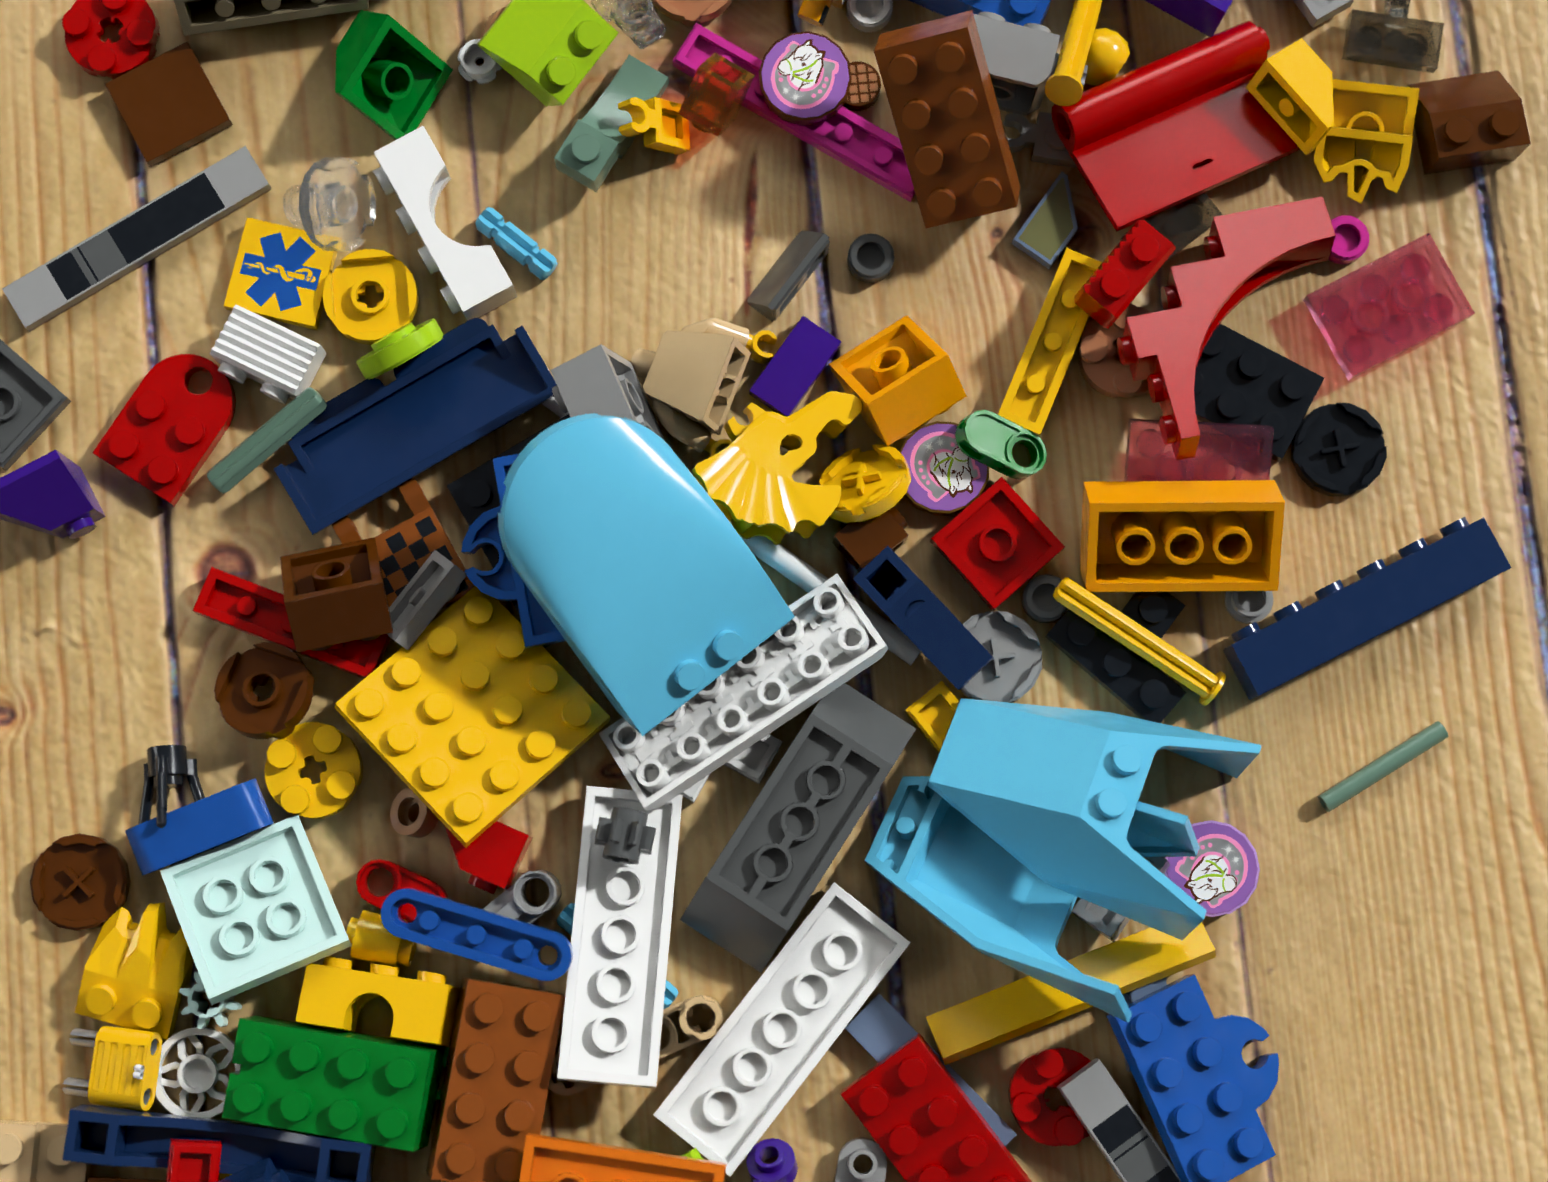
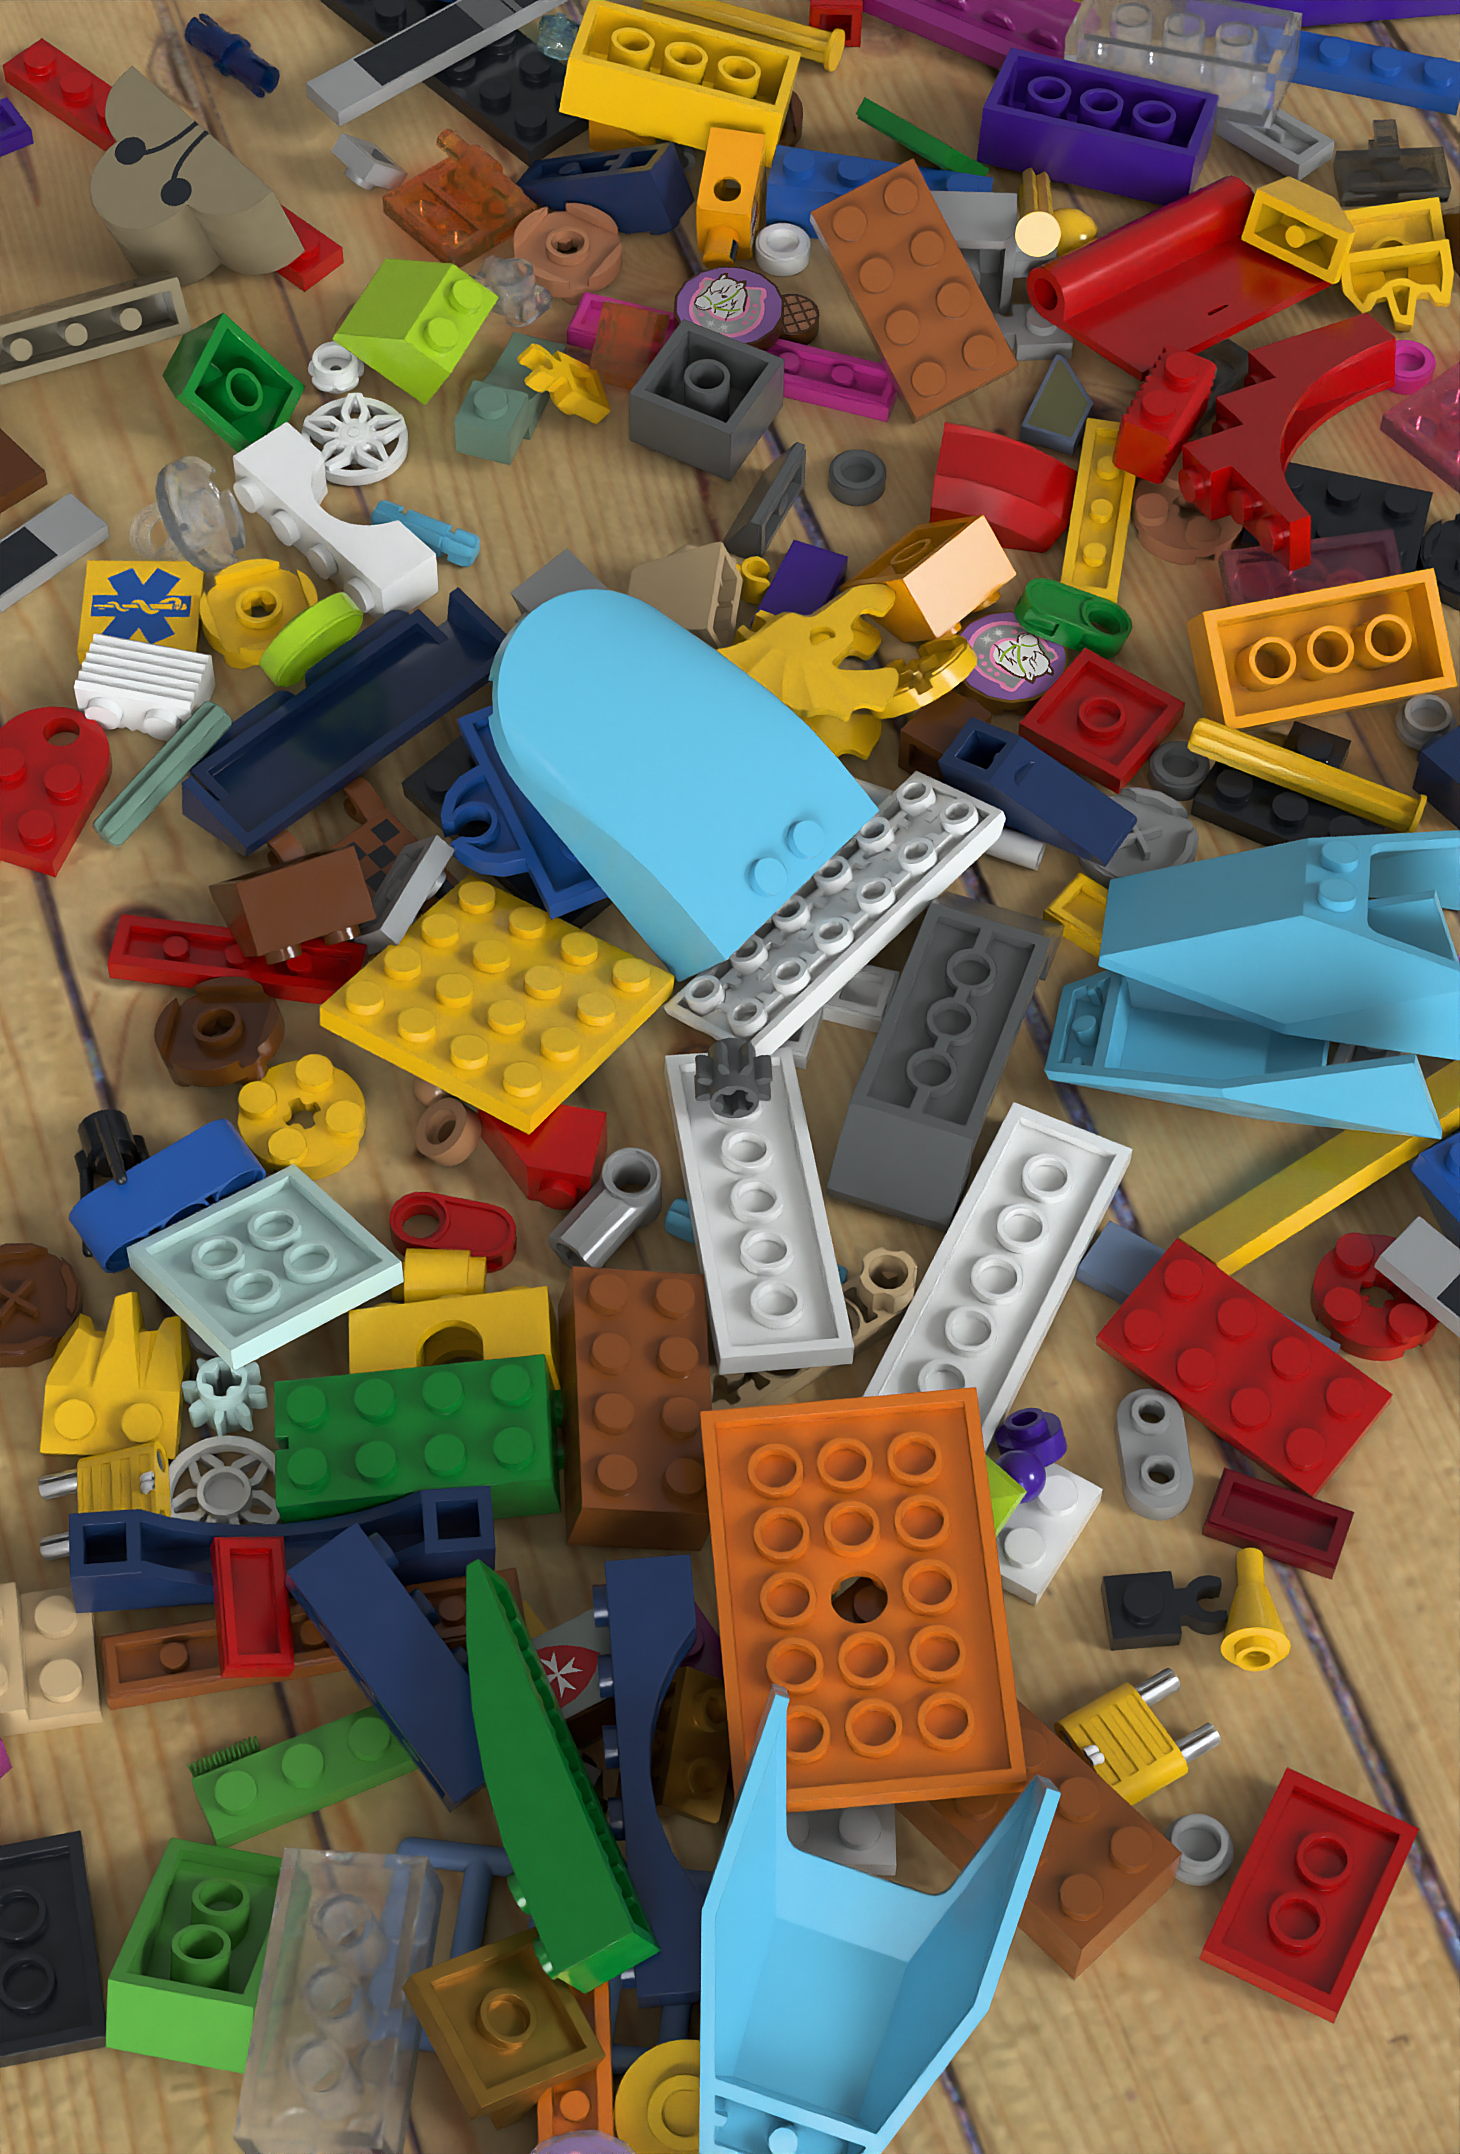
camera: 10 degrees left, 25 degrees down
(476, 934) = (569, 1224): blue plate -> none
(480, 135) = (358, 439): none -> white wheel
(764, 168) = (706, 399): none -> dark grey brick
(980, 300) = (1007, 481): none -> red slope

